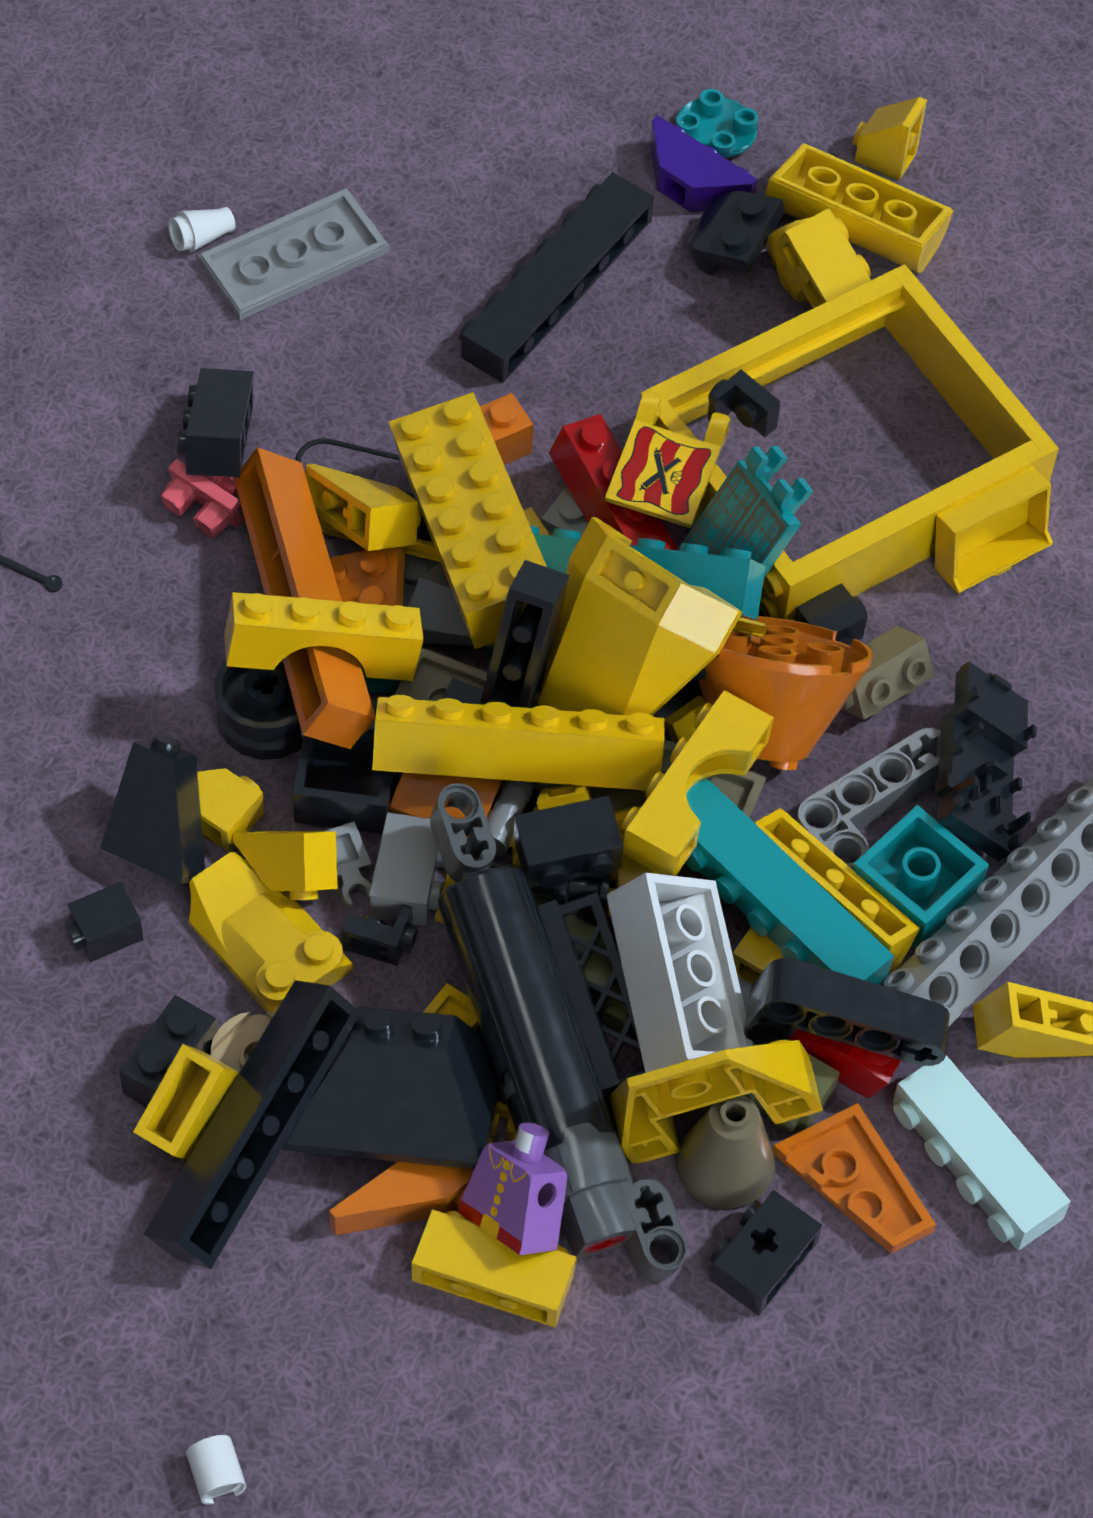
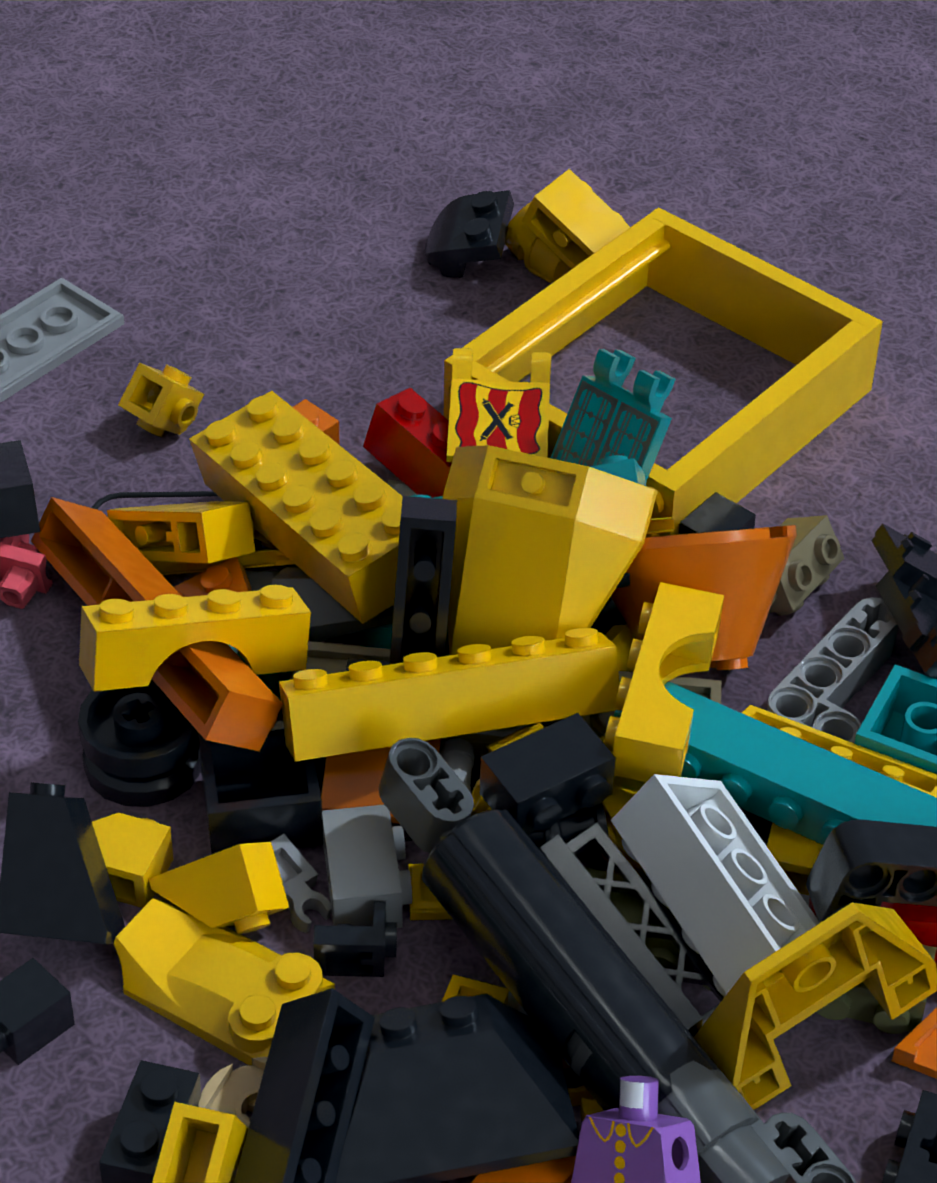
camera: 15 degrees left, 15 degrees down
(390, 355) = (161, 399): none -> yellow brick
(556, 277) = (306, 305): black brick -> none
(692, 171) = (404, 195): dark purple slope -> none
(719, 123) = (413, 160): teal dish -> none
(727, 1156) = (850, 1065): dark tan cone -> none
(748, 400) = (562, 334): black bracket -> none
(874, 210) = (624, 189): yellow brick -> none
(891, 137) = (587, 131): yellow slope -> none
(993, 530) = (843, 415): yellow container -> none

